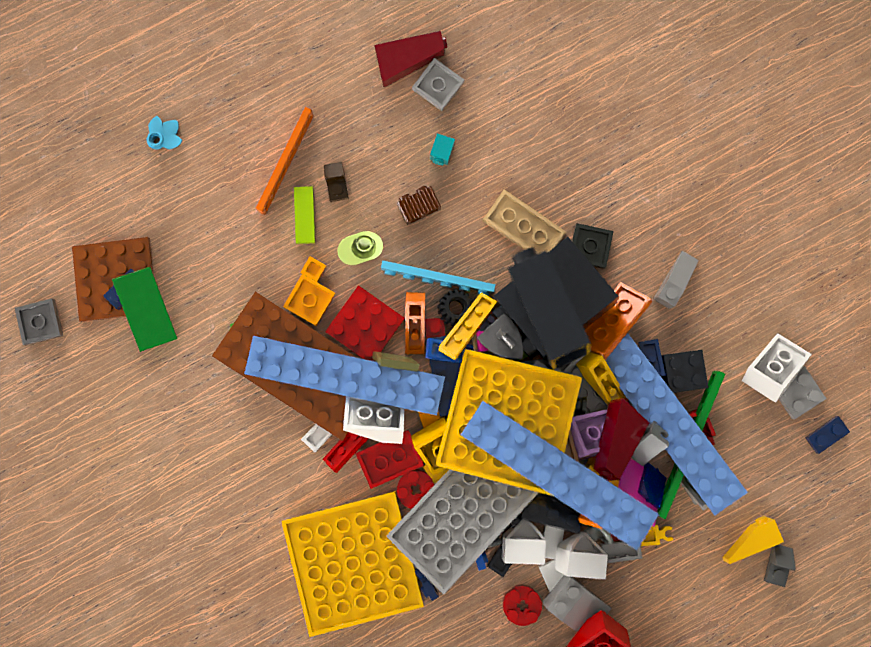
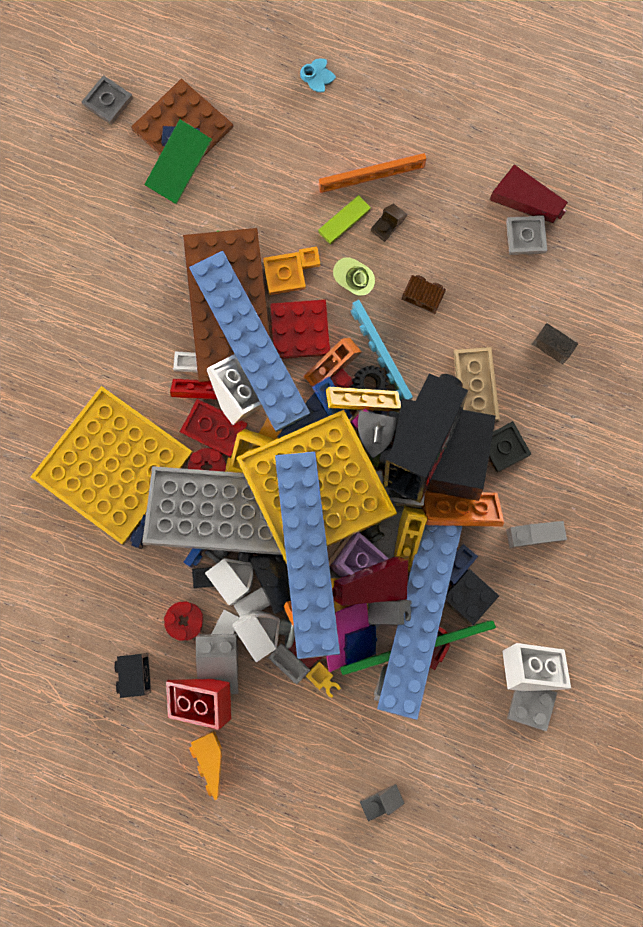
camera: 50 degrees right, 5 degrees down
(395, 361) = (291, 369): olive tile -> none
(442, 149) = (480, 277): teal brick -> none
(543, 138) = (555, 343): none -> clear smoke brick
(756, 538) = (389, 765): yellow slope -> none
(827, 434) = (519, 757): dark blue plate -> none

